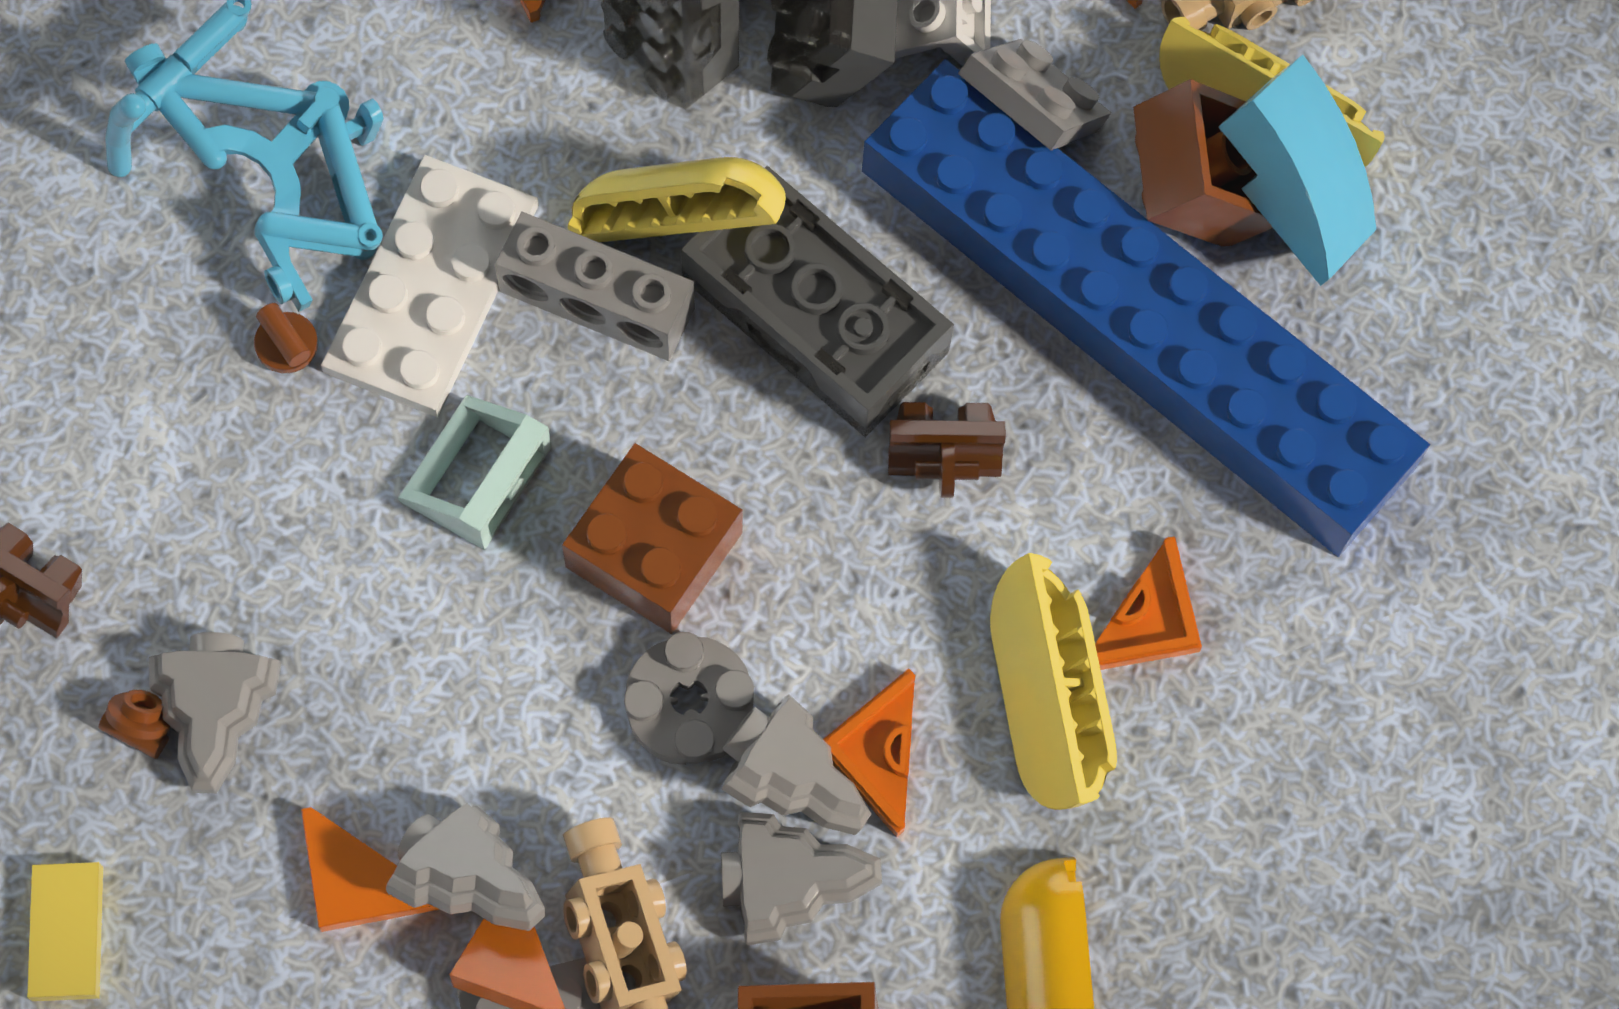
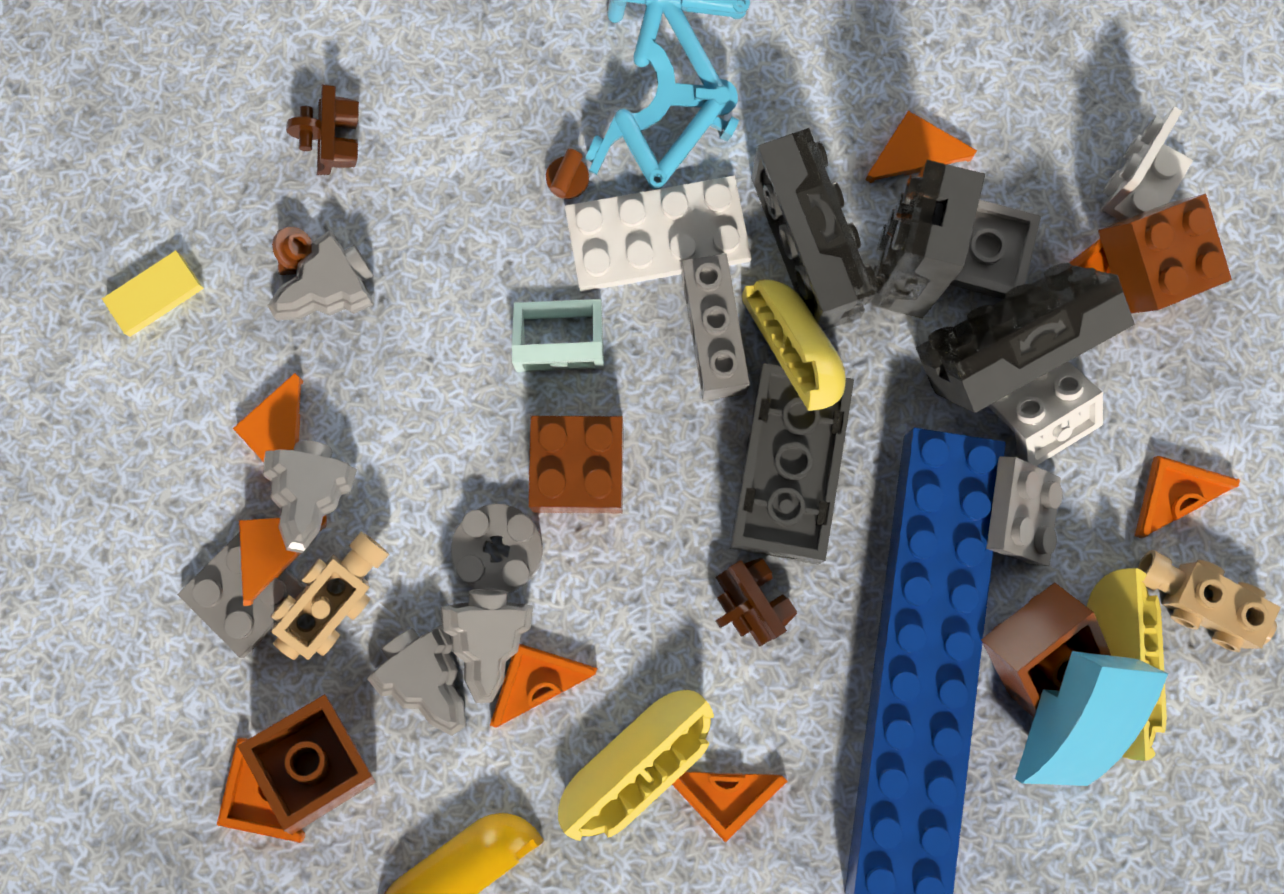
camera: 65 degrees right, 10 degrees up
(555, 104) = (812, 229): none -> dark grey piece

